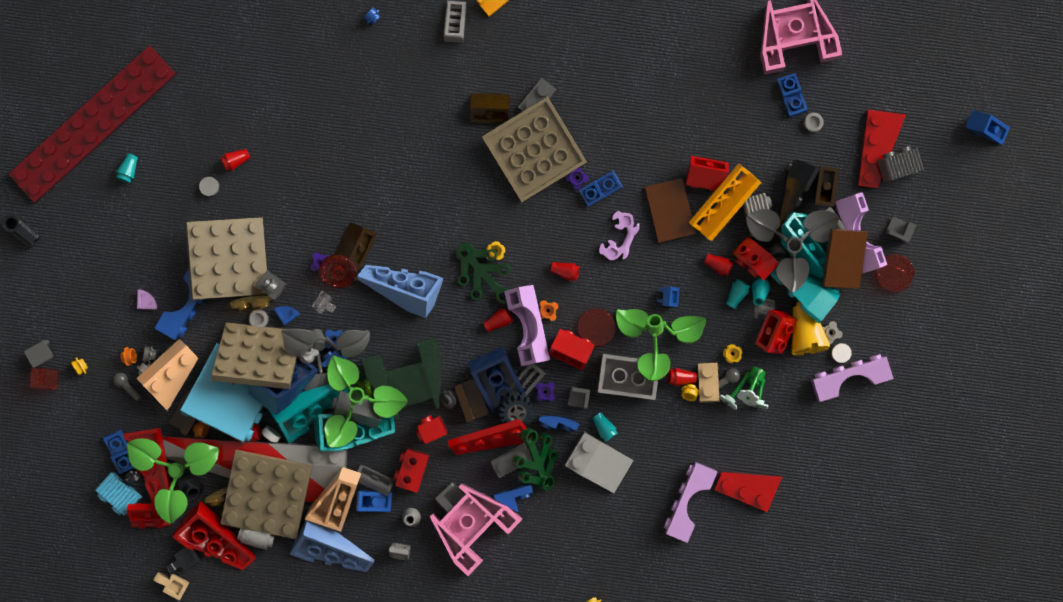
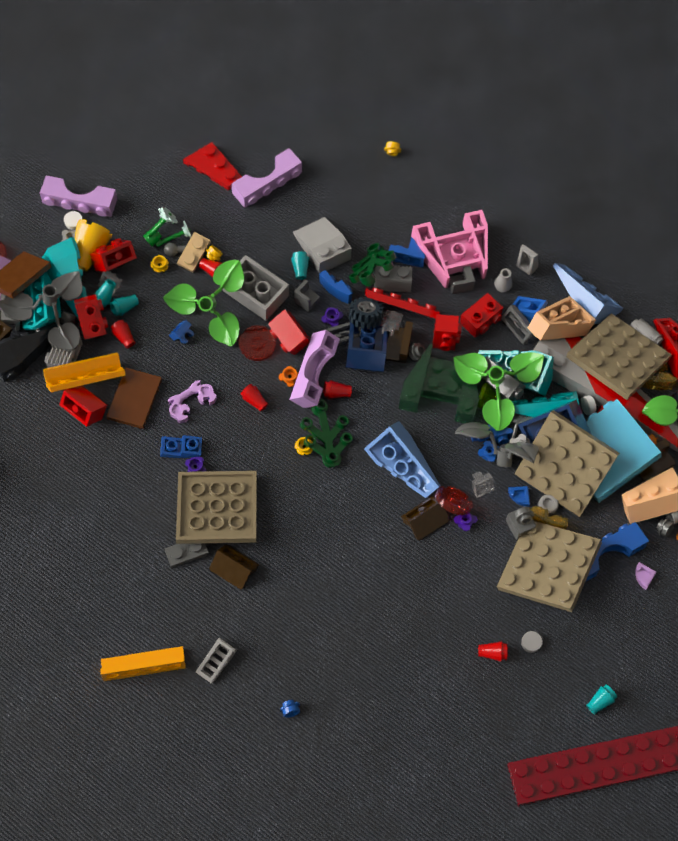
camera: 155 degrees left, 25 degrees down
(489, 416) = (391, 321): none -> clear plate

